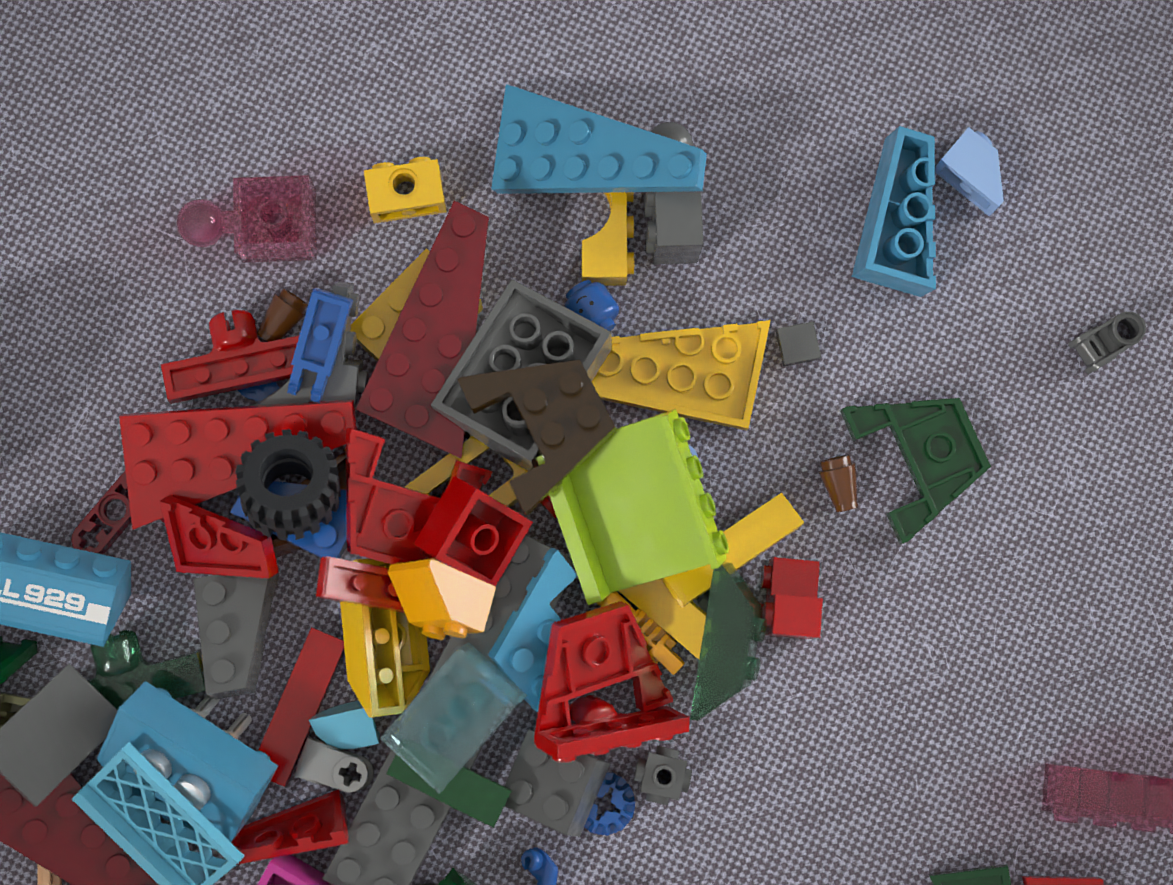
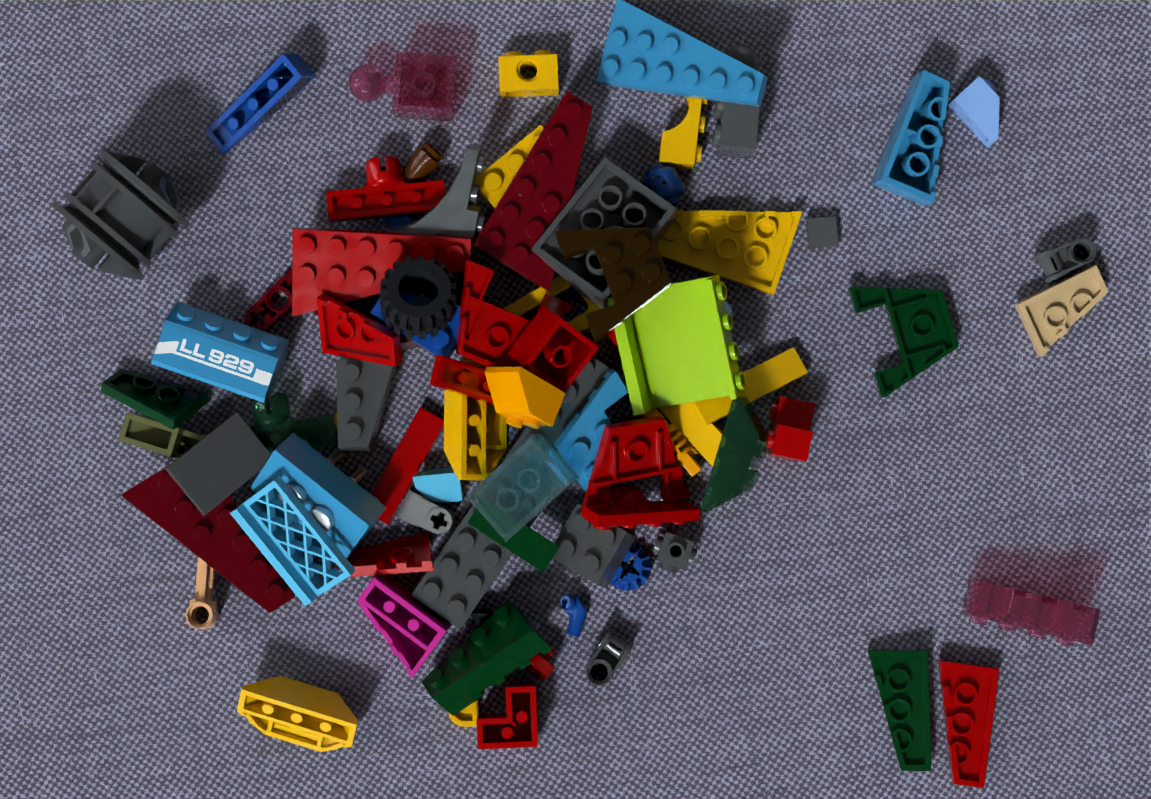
camera: 15 degrees right, 5 degrees up
(69, 259) = (261, 100): none -> blue slope
(319, 340) = (452, 189): blue hinge -> none
(840, 482) = (840, 344): reddish brown cone -> none
(1106, 403) = (1056, 308): none -> tan wing

